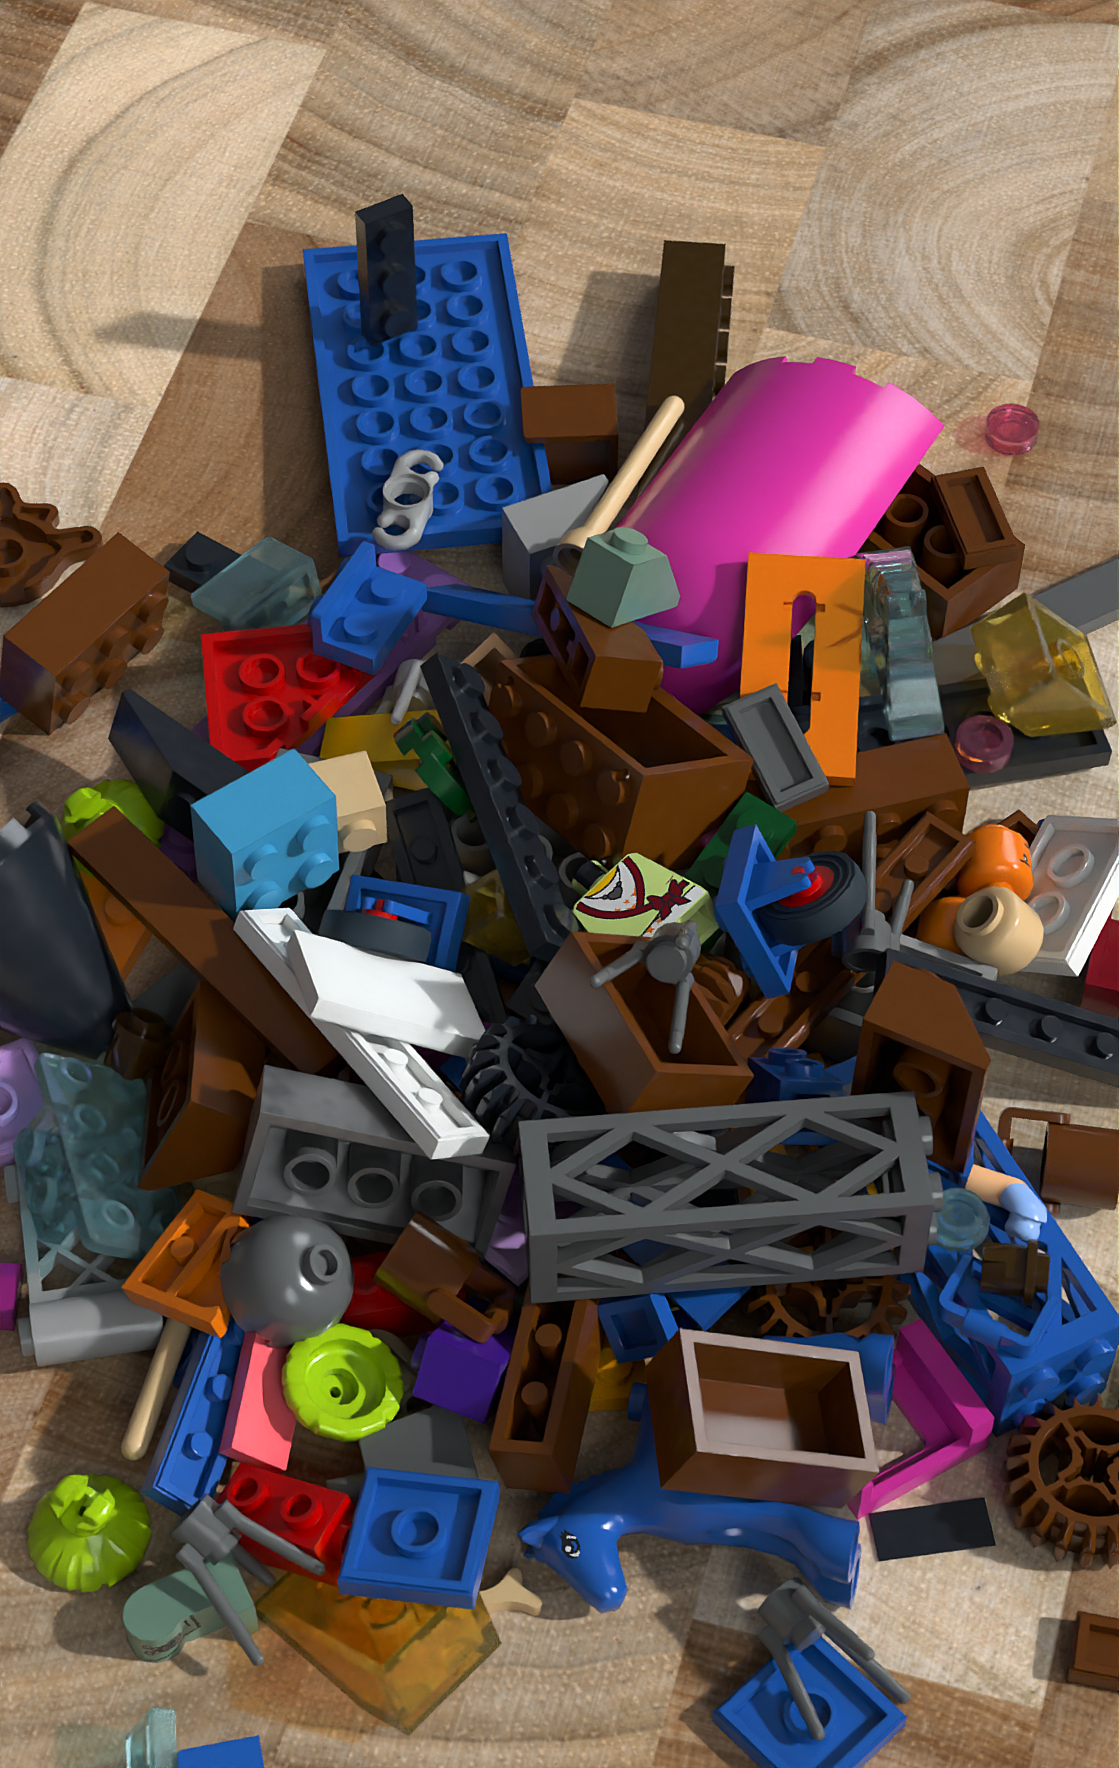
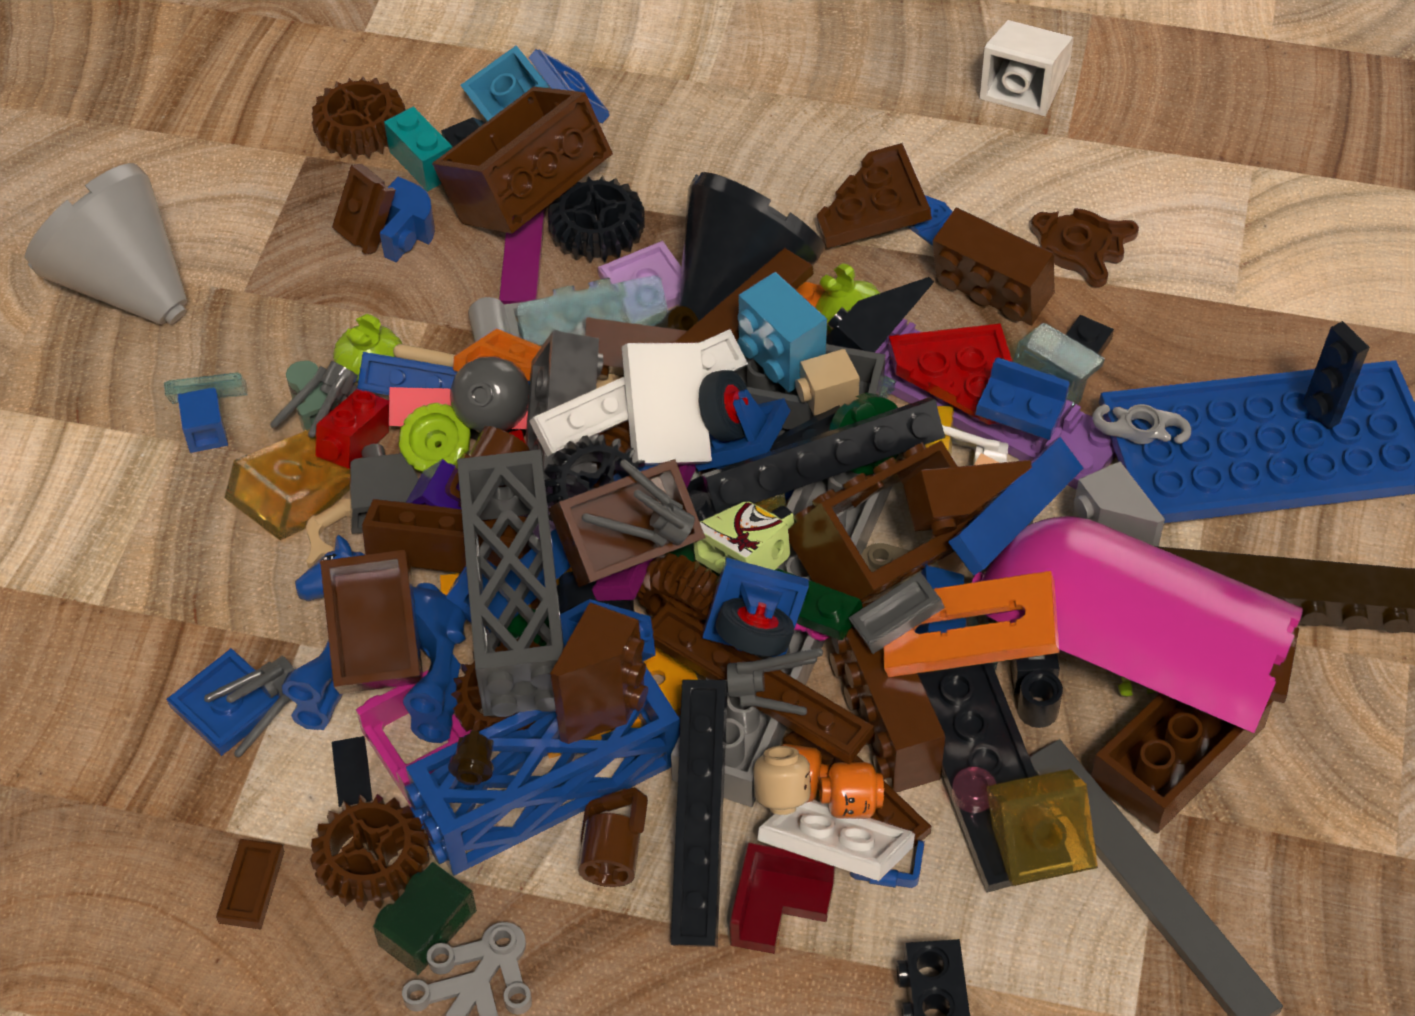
camera: 90 degrees right, 0 degrees up
(419, 1538) = (322, 474): blue tile -> none
(570, 547) = (1086, 506): tan piece -> none
(576, 429) = (1245, 520): reddish brown piece -> none
(622, 578) = (1009, 495): sand green slope -> none
(899, 644) = (1033, 684): clear light blue animal -> none
(962, 1221) = (514, 728): clear light blue plate -> none
(974, 518) = (1179, 768): reddish brown tile -> none
(985, 1328) = (435, 746): blue piece -> none
(1011, 429) = (1329, 833): clear pink tile -> none
(1013, 1195) = (530, 763): light blue arm -> none

